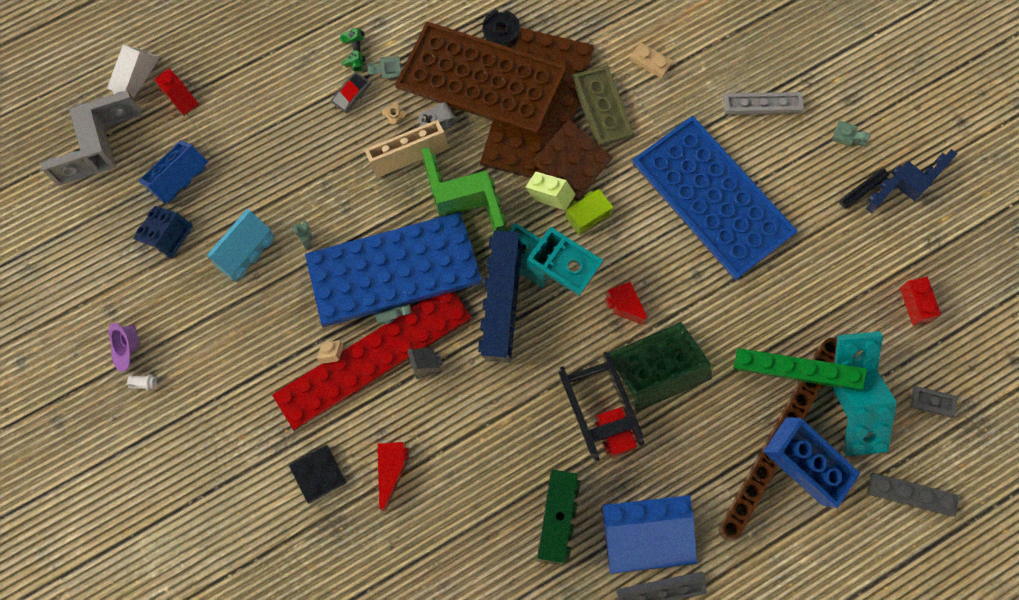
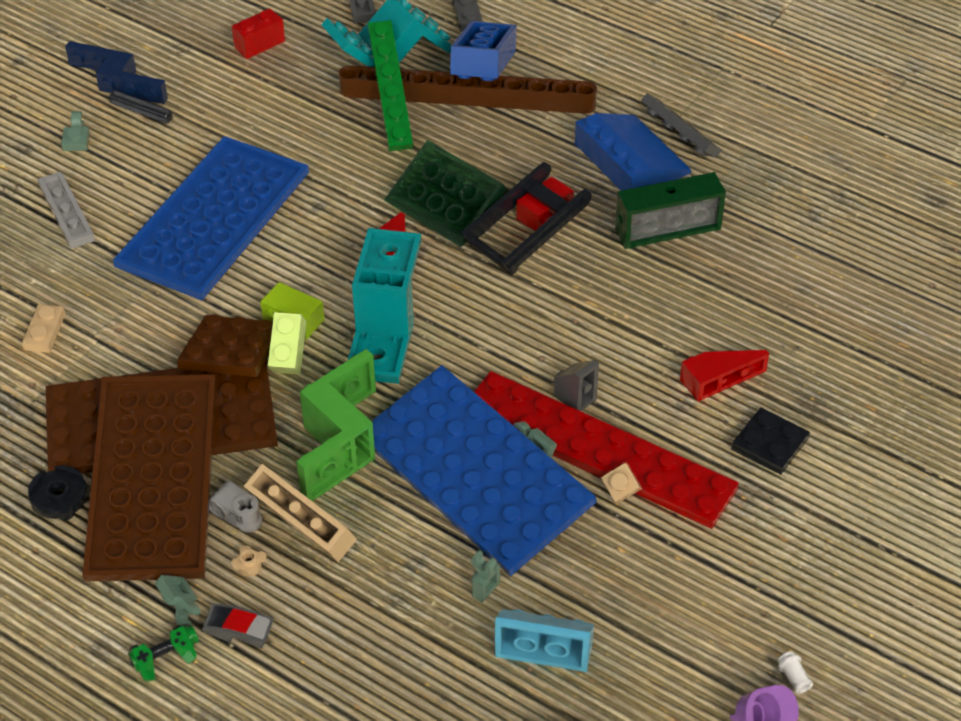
camera: 115 degrees left, 25 degrees down
(501, 296) = (454, 330): dark blue brick -> none
(602, 106) = (136, 345): olive tile -> none

